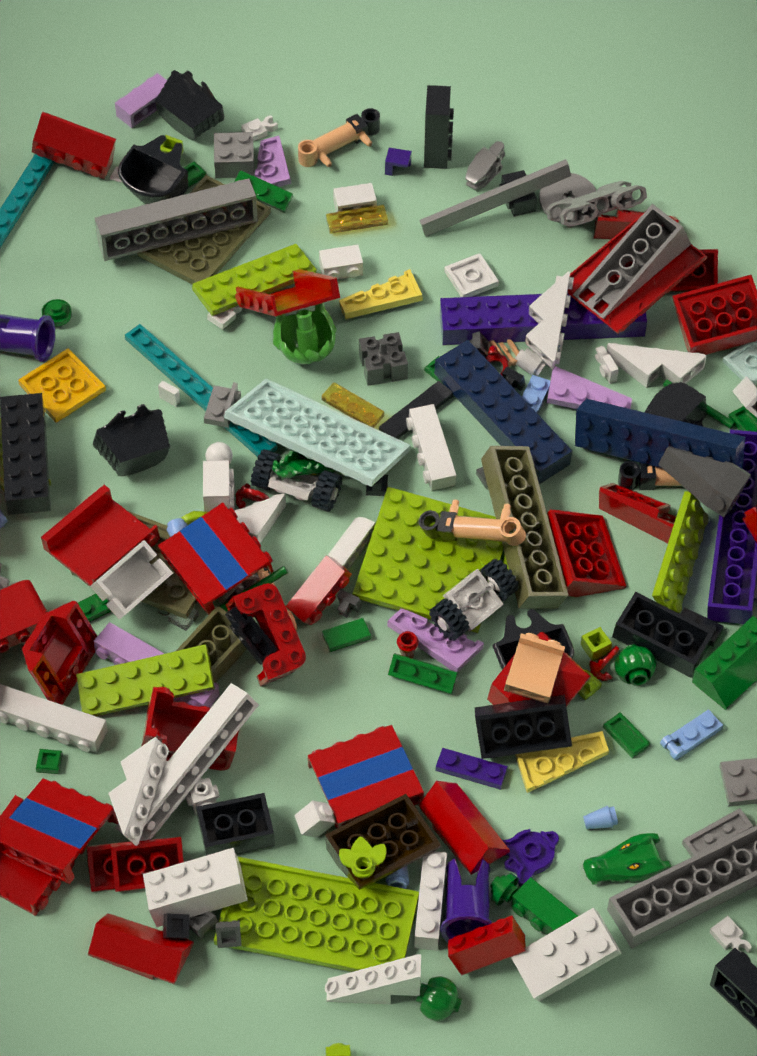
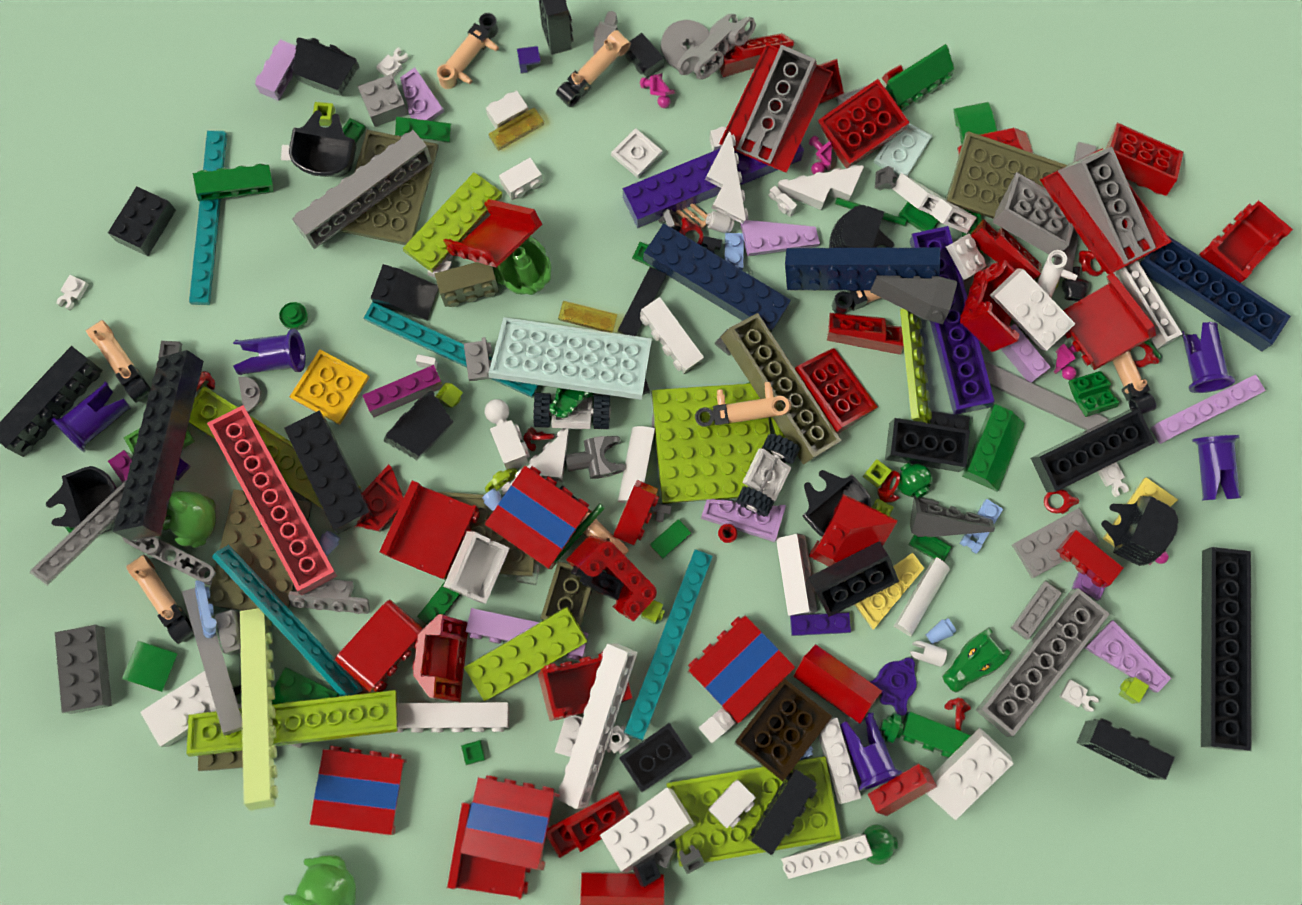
camera: 25 degrees left, 20 degrees up
(53, 179) = (233, 182): none -> green brick
(64, 498) = (383, 499): none -> red wing
(73, 145) = (237, 143): red slope -> none
(107, 407) = (402, 391): none -> magenta brick
(135, 795) = (566, 773): white slope -> none
(176, 325) = (404, 292): none -> black slope
(178, 429) = (449, 395): none -> lime plate
(241, 334) = (466, 283): none -> olive brick
(296, 692) = (653, 612): none -> lime plate
(296, 895) = (732, 804): none -> white brick
(297, 726) = (668, 645): none -> teal plate
(301, 534) = (594, 458): none -> dark grey connector
(345, 915) = (782, 811): none -> black brick
(363, 855) = (775, 751): lime plate -> none
(383, 358) = (595, 262): dark grey brick -> none
(391, 294) = (572, 197): light yellow wing -> none
(423, 673) = (748, 553): green plate -> none
(440, 195) = (580, 81): none -> light nougat piece
(460, 726) = (795, 573): none -> white brick
(495, 197) = (630, 70): light grey tile -> none
(519, 221) = (659, 88): none -> dark pink piece
(534, 667) = (852, 535): light nougat panel -> none
(578, 834) = (932, 654): none -> white piece
(592, 900) = (961, 708): none -> red piece
(594, 777) = (922, 596): none -> white brick
(638, 705) = (935, 520): none -> dark grey wedge
(669, 333) = (823, 155): none -> dark pink piece
(727, 377) = (884, 178): none -> dark grey tile

